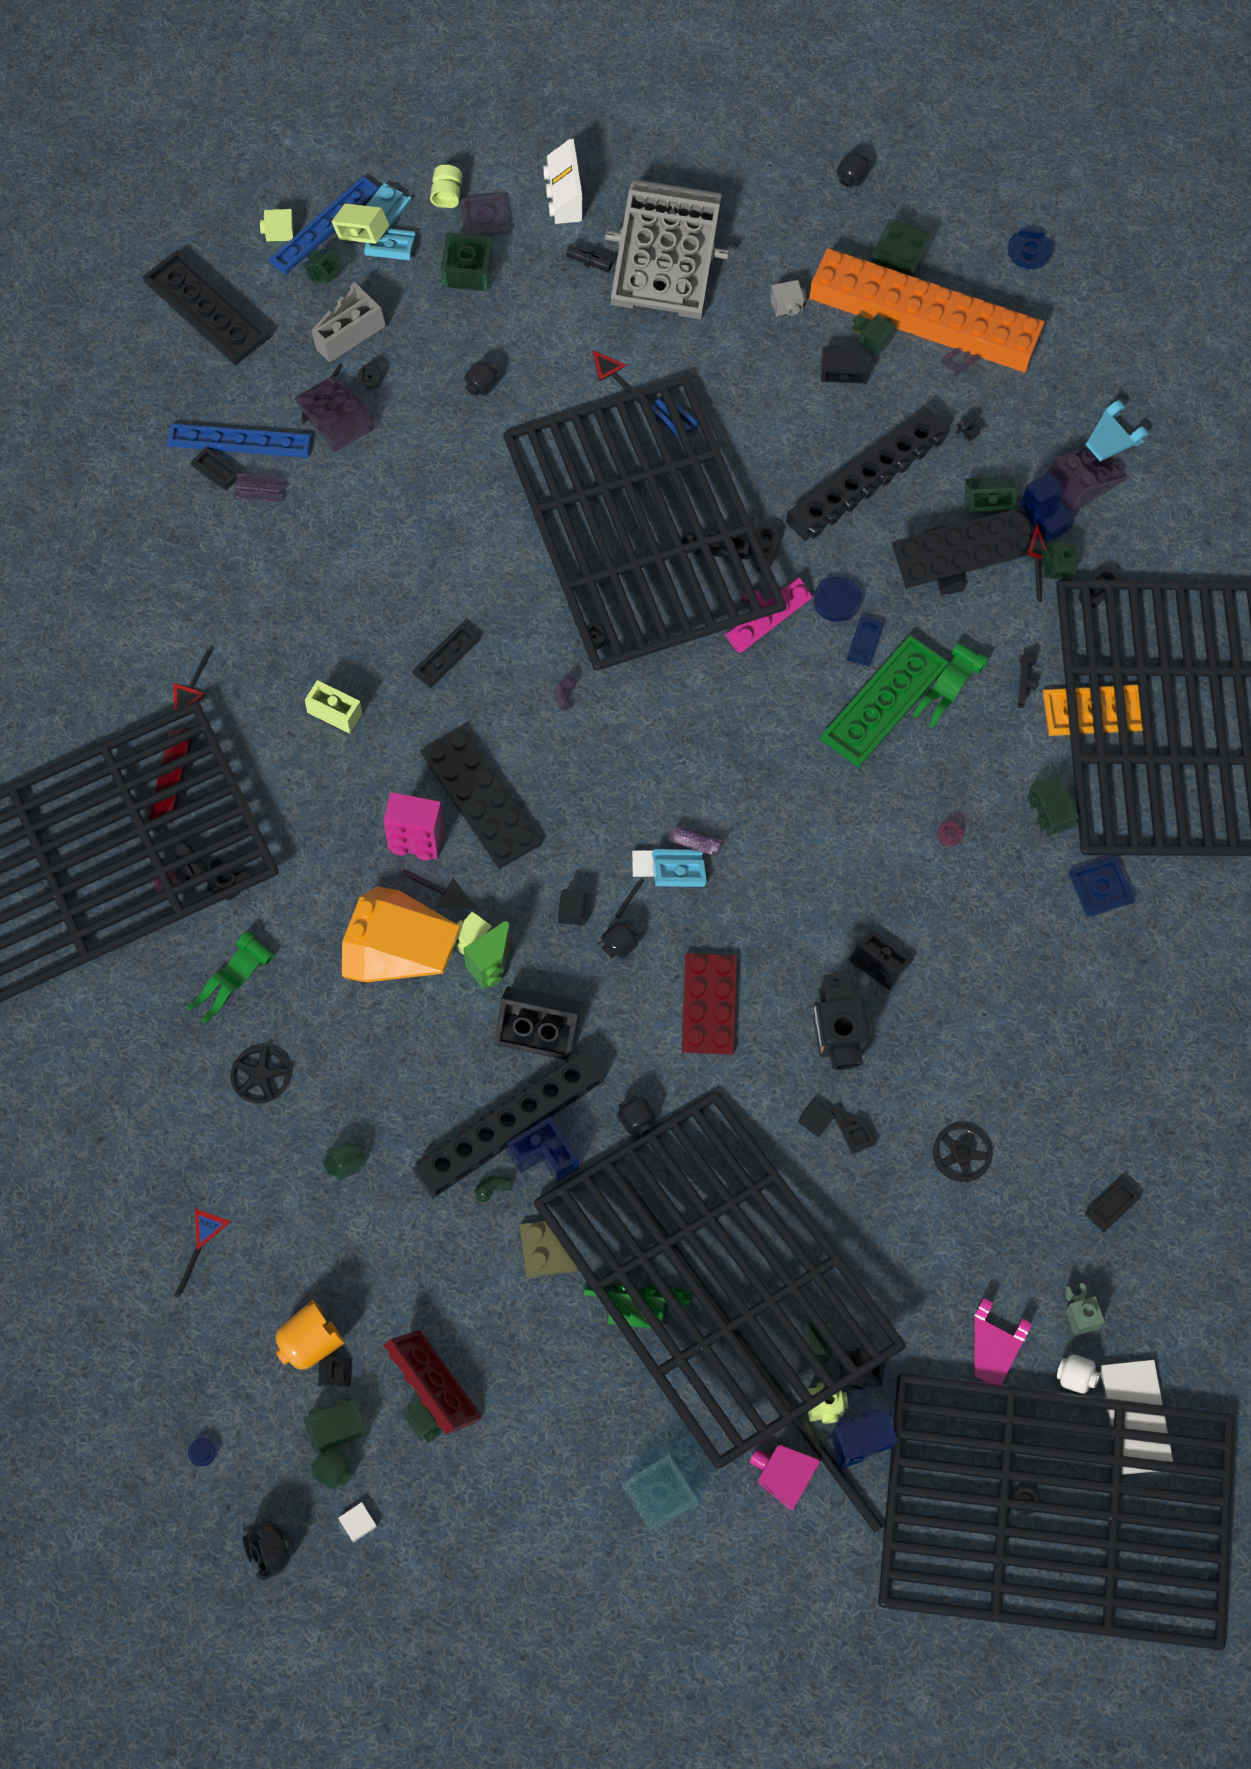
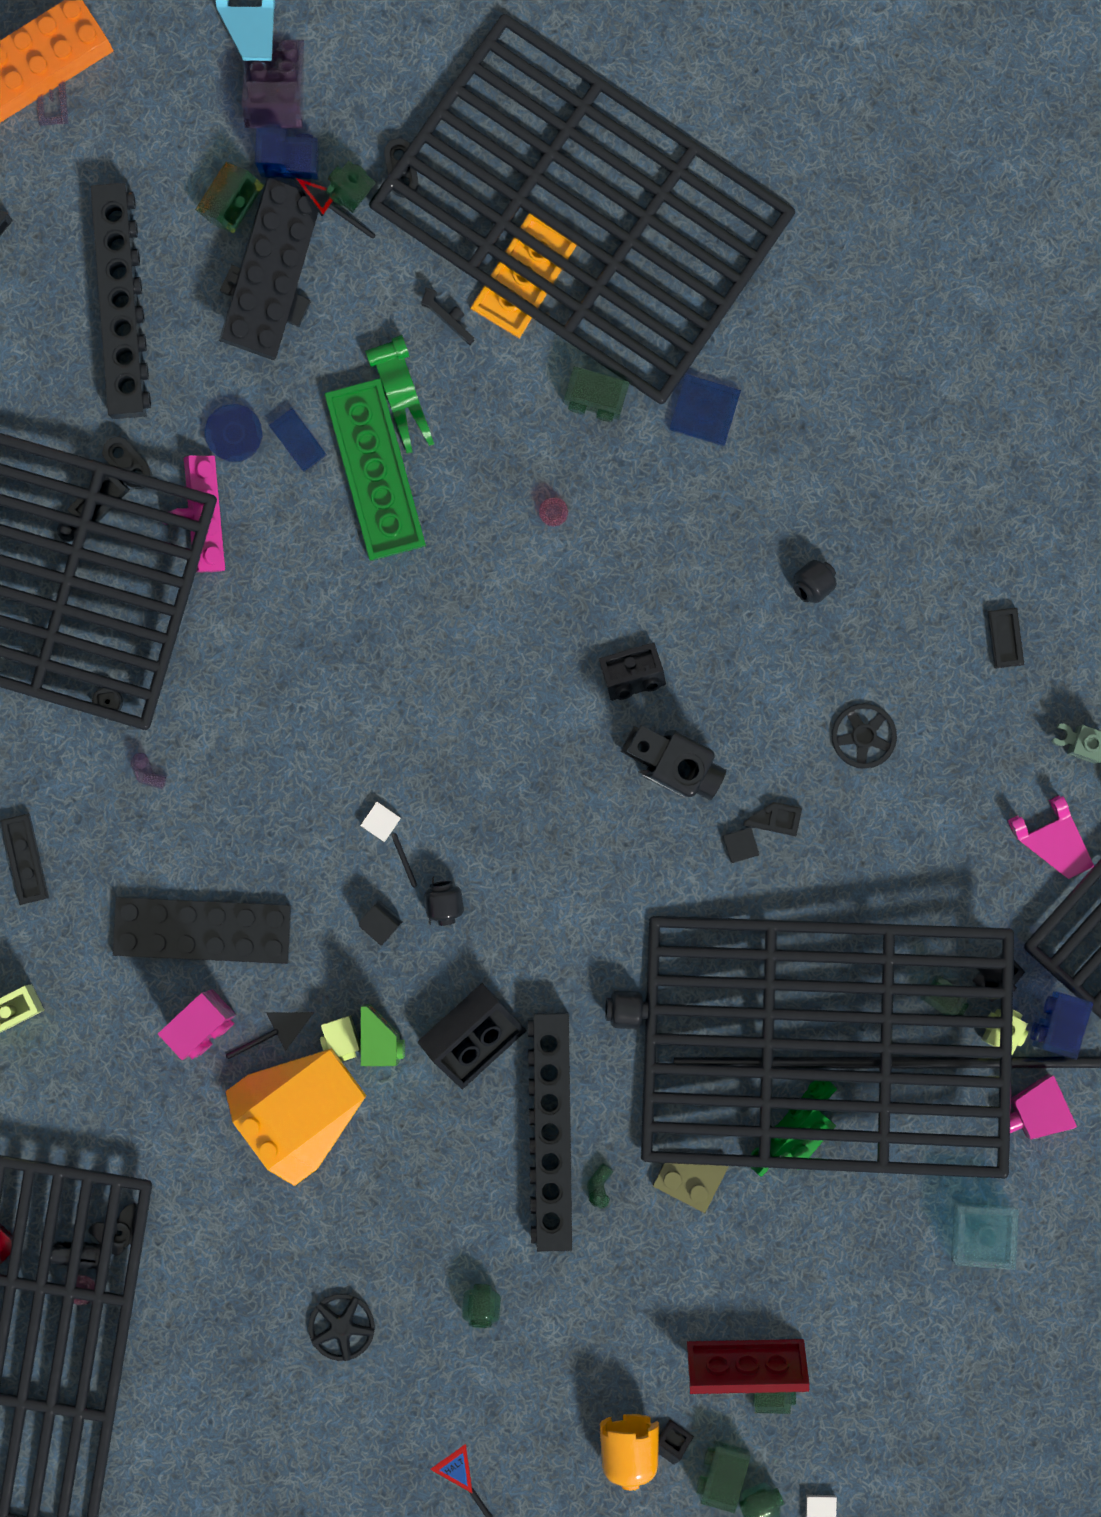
camera: 55 degrees left, 20 degrees up
(235, 973) = (222, 1285): green flag -> none
(545, 1144) = (597, 1112): clear blue brick -> none
(678, 868) = (410, 795): medium azure plate -> none
(695, 840) = (392, 758): clear purple tile -> none
(709, 1004) = (562, 862): dark red plate -> none
(969, 430) = (136, 160): black plate -> none
(1044, 1039) = (814, 581): none -> black head

